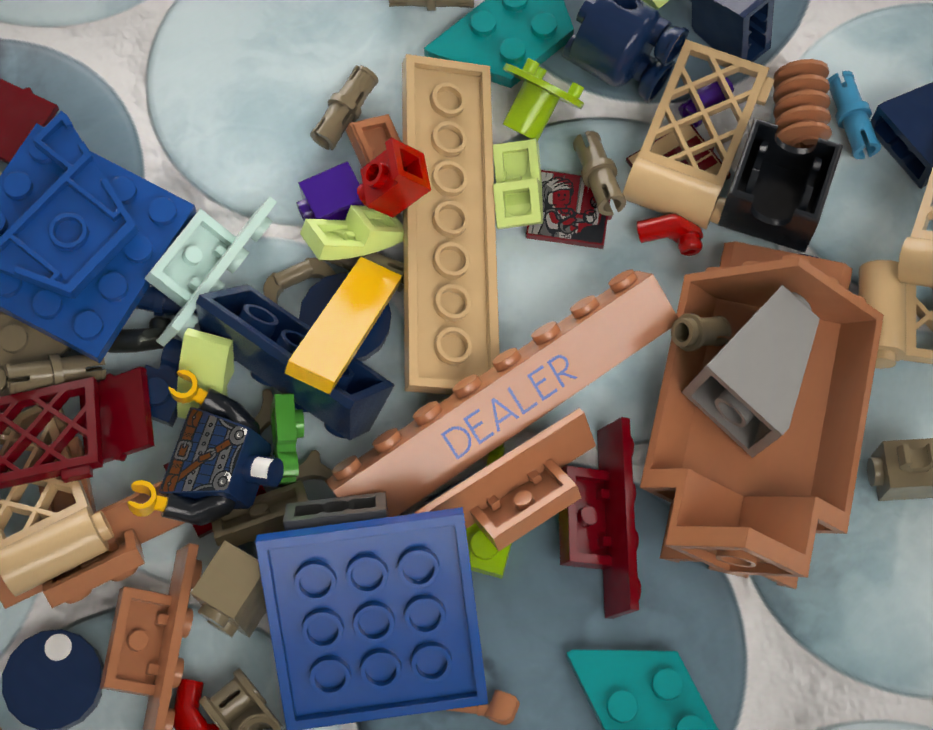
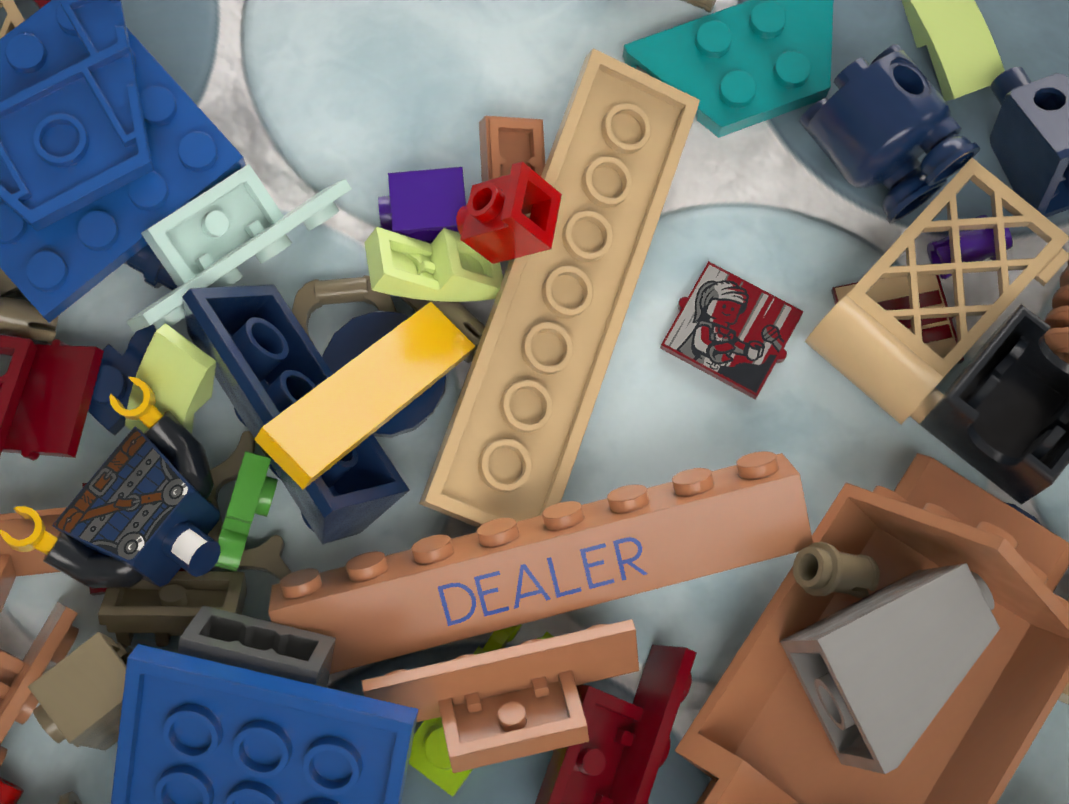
camera: 15 degrees right, 5 degrees up
(140, 339) = (115, 308): pearl dark grey arm -> none
(344, 107) = (491, 89): dark tan pin -> none
(517, 184) = (676, 274): yellowish green slope -> none
(536, 100) = (741, 170): lime piece -> none
(599, 173) = (787, 298): dark tan pin -> none
(675, 228) = (859, 408): red arm -> none

